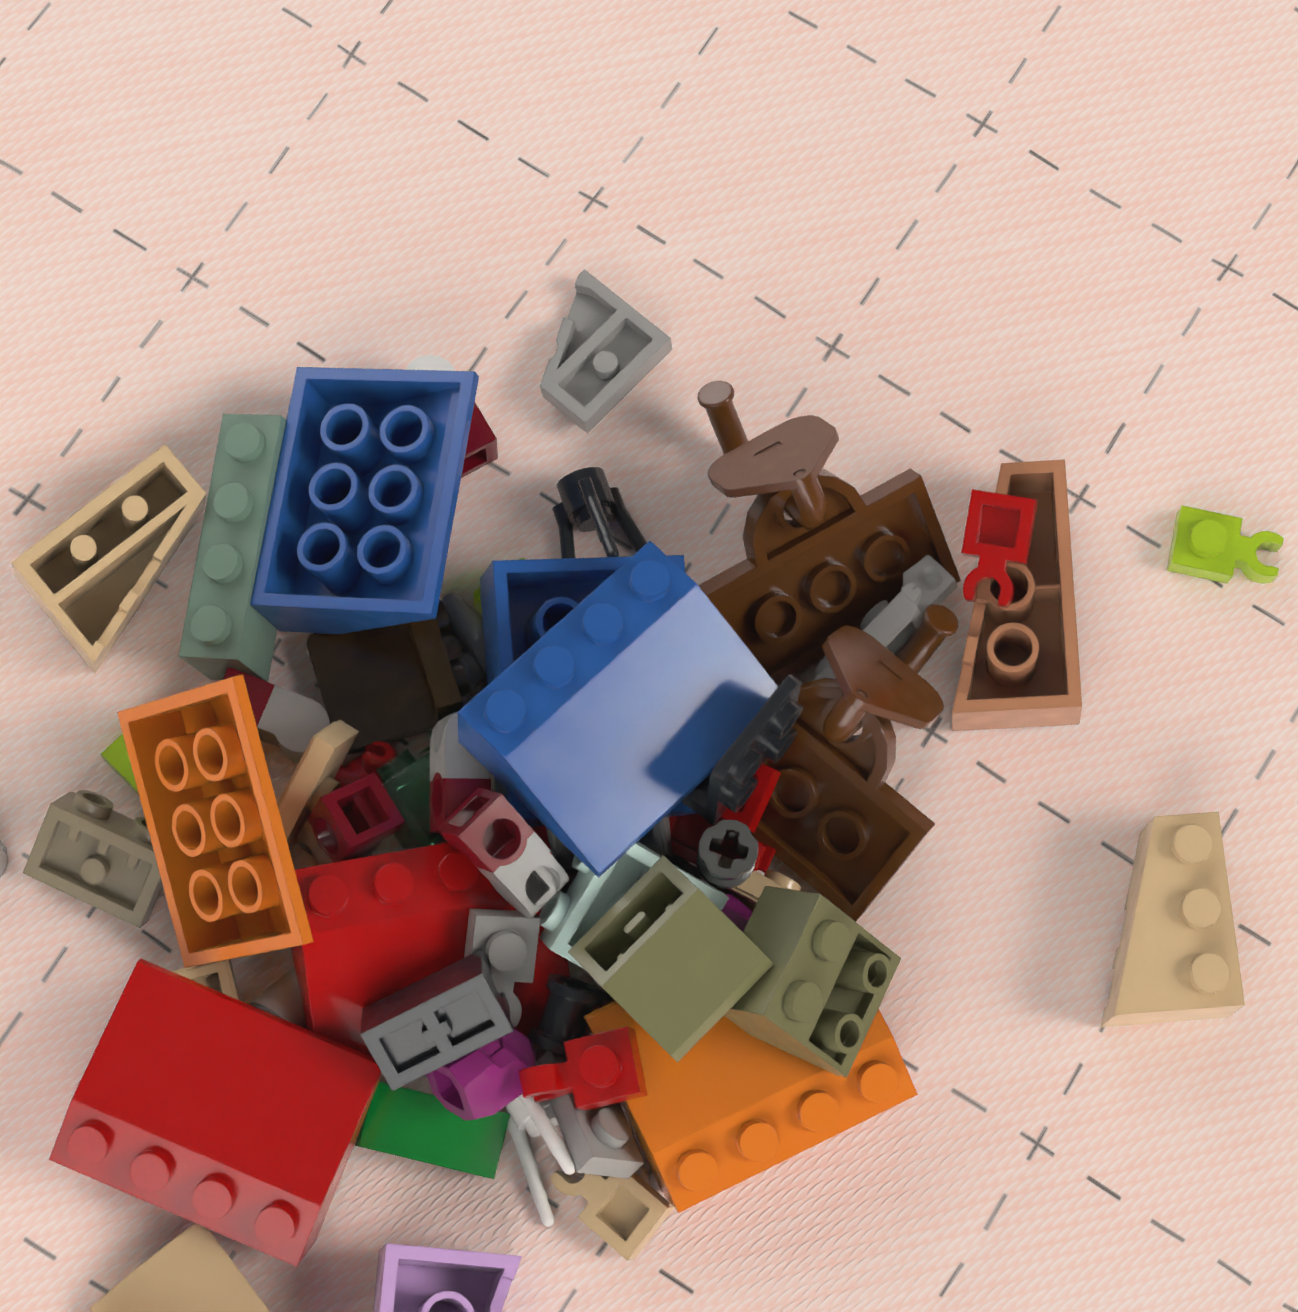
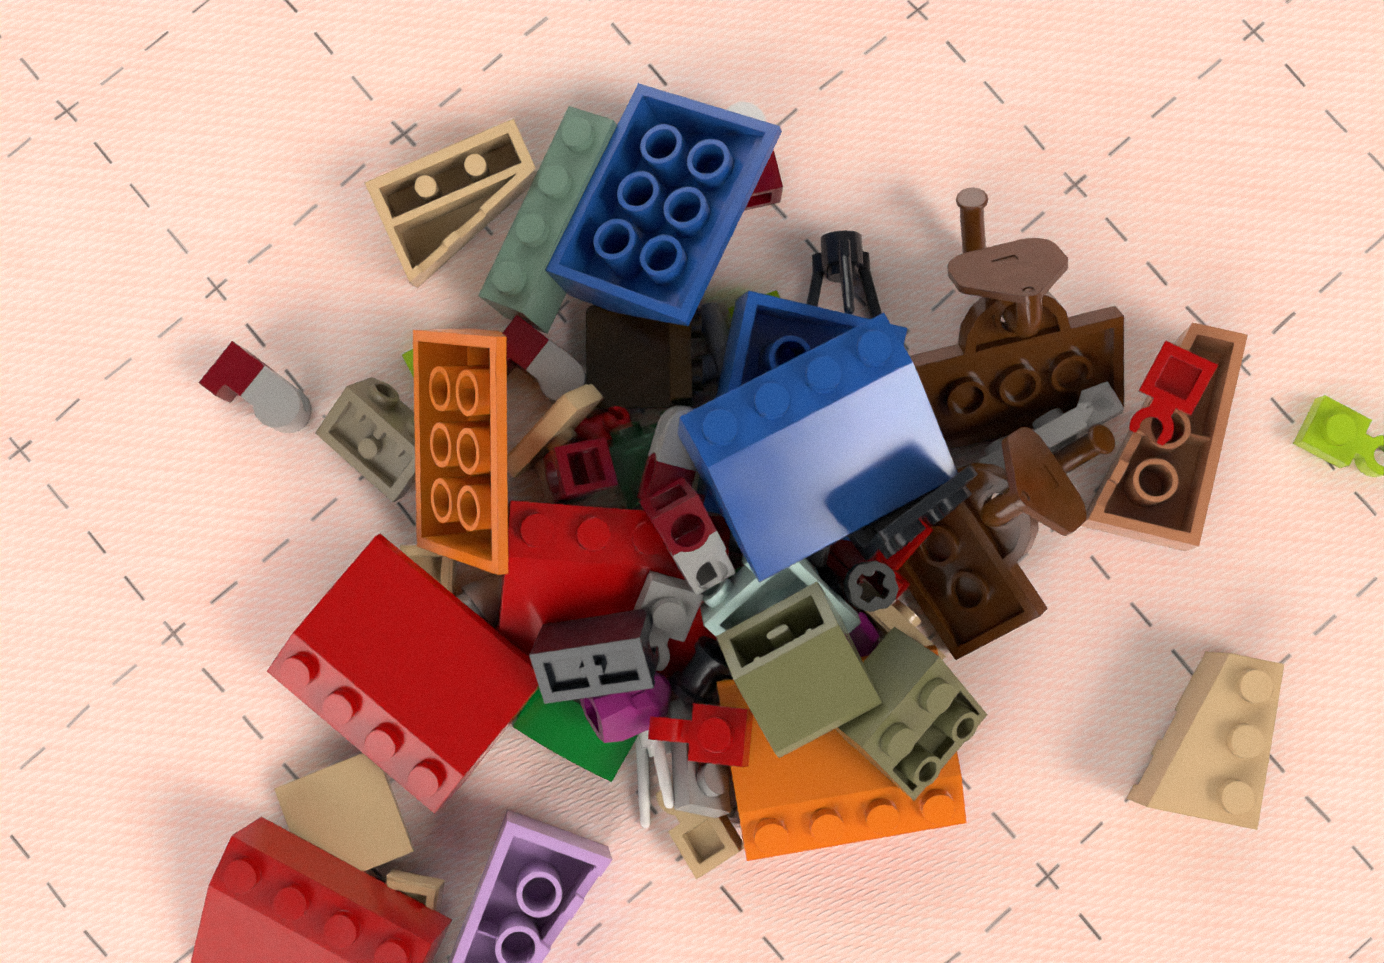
camera: 25 degrees right, 10 degrees up
(600, 354) = (887, 139): light grey wing -> none

